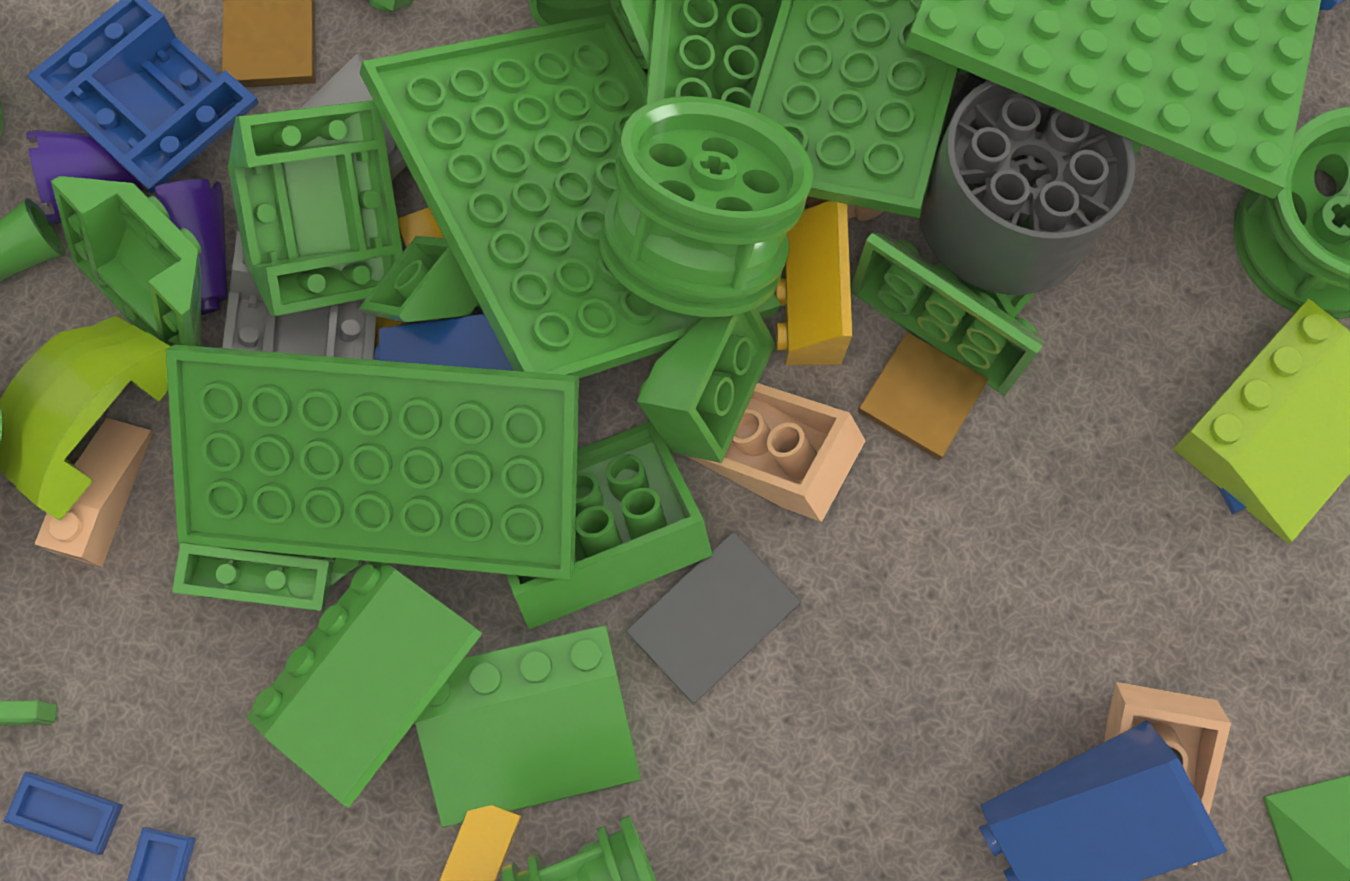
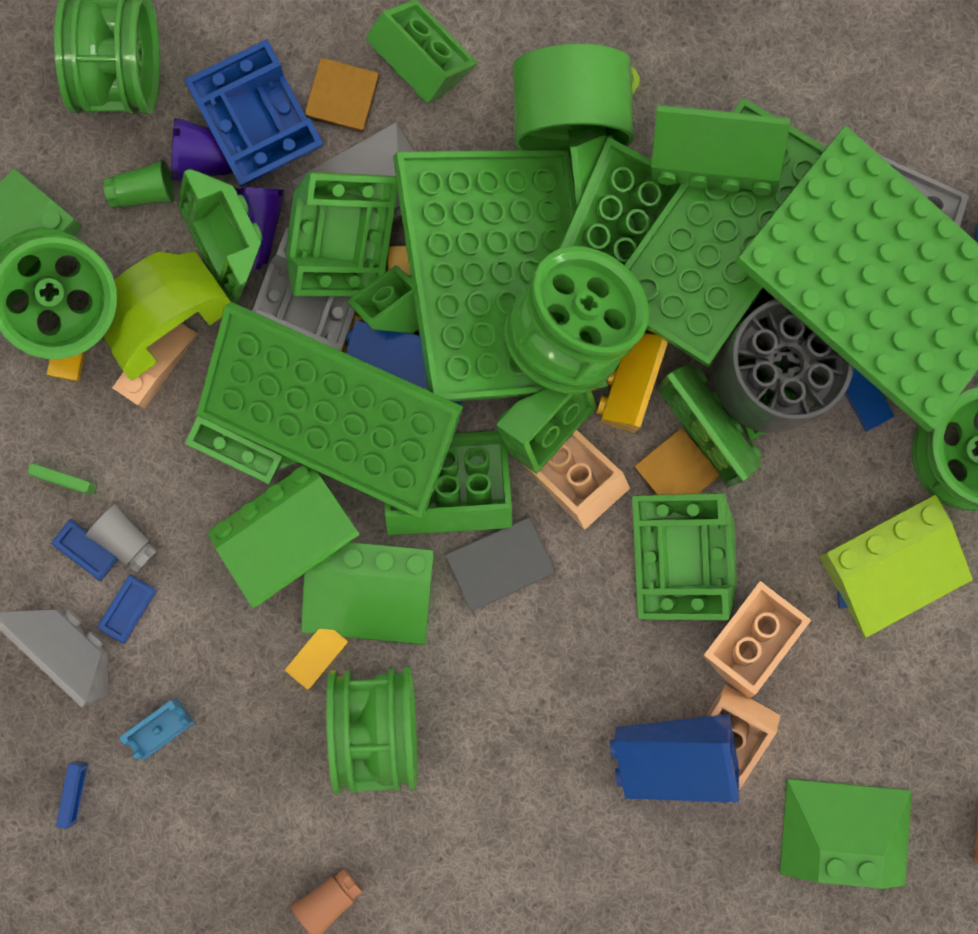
camera: 15 degrees right, 10 degrees up
(113, 774) = (122, 539): none -> light grey plant
(982, 511) = (684, 556): none -> bright green slope
(1140, 597) = (756, 640): none -> light nougat slope
(1155, 214) = (867, 402): none -> blue tile

